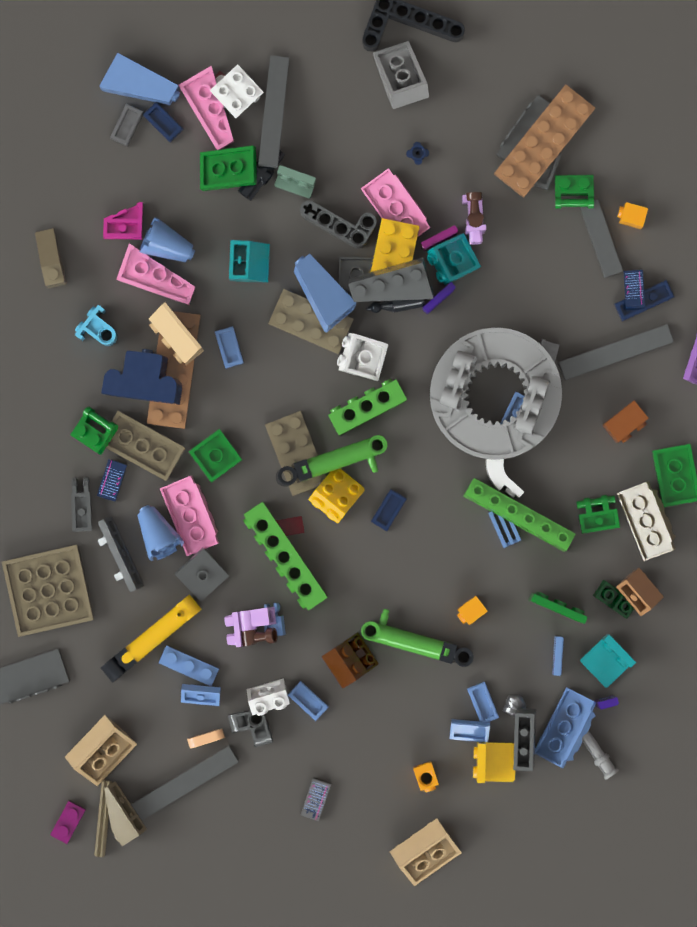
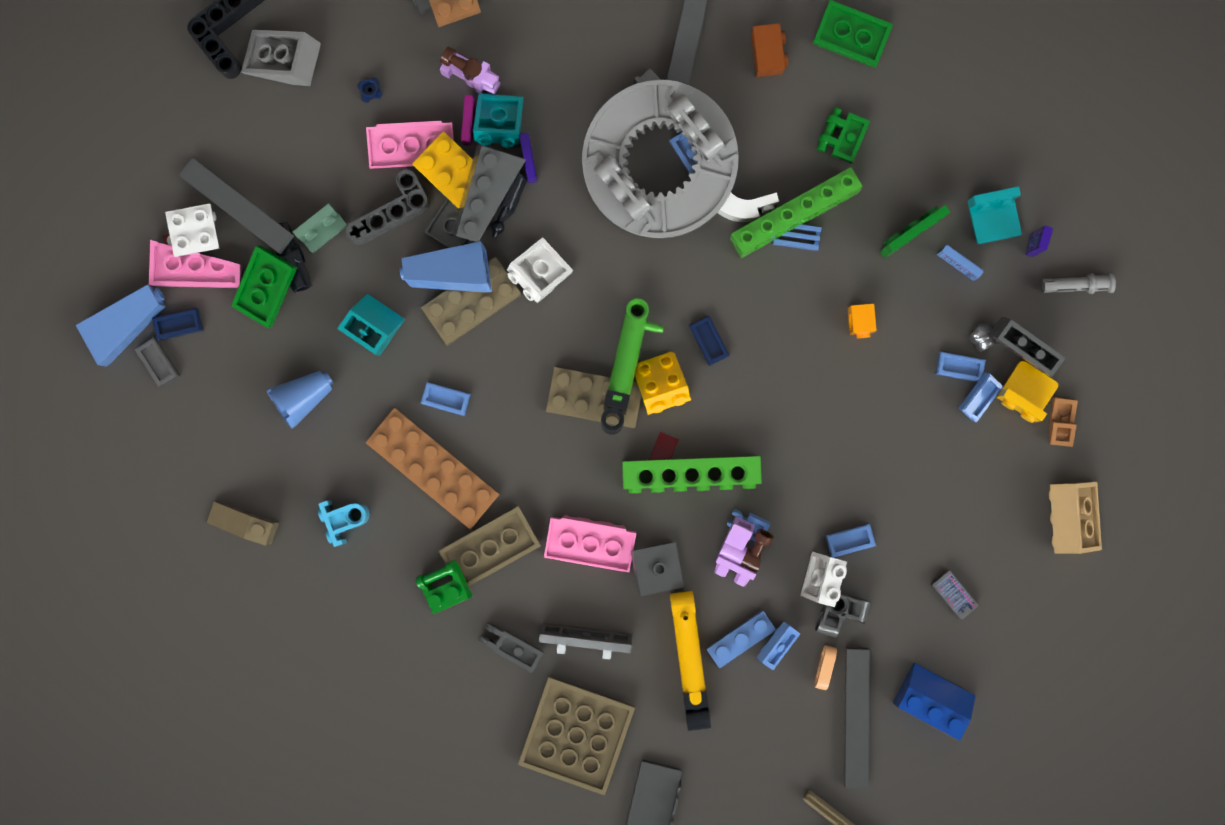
camera: 55 degrees left, 0 degrees up
(100, 750) = (772, 783): tan slope -> none
(112, 480) = (505, 600): dark blue tile -> none
(123, 818) = (857, 803): slope -> none
(125, 224) = (255, 426): dark pink wing -> none
(143, 379) = (423, 505): dark blue brick -> none
(151, 276) = (321, 434): bright pink wing -> none
(157, 533) = (588, 588): medium blue cone -> none
(175, 334) = (397, 444): tan slope -> none
(215, 455) = (546, 480): green plate -> none
(231, 832) = (936, 701): none -> blue slope
(350, 660) = (836, 473): reddish brown slope -> none
(396, 398) = (600, 262): bright green brick -> none
(414, 642) = (860, 396): bright green piece -> none
(426, 768) = (990, 469): light orange brick -> none
(489, 801) = (1061, 423): none -> medium nougat slope
(566, 728) = (1038, 298): medium blue piece -> none
(613, 599) = (938, 171): dark green slope -> none
(640, 591) = (947, 140): medium nougat brick -> none
(647, 520) = (880, 89): piece -> none

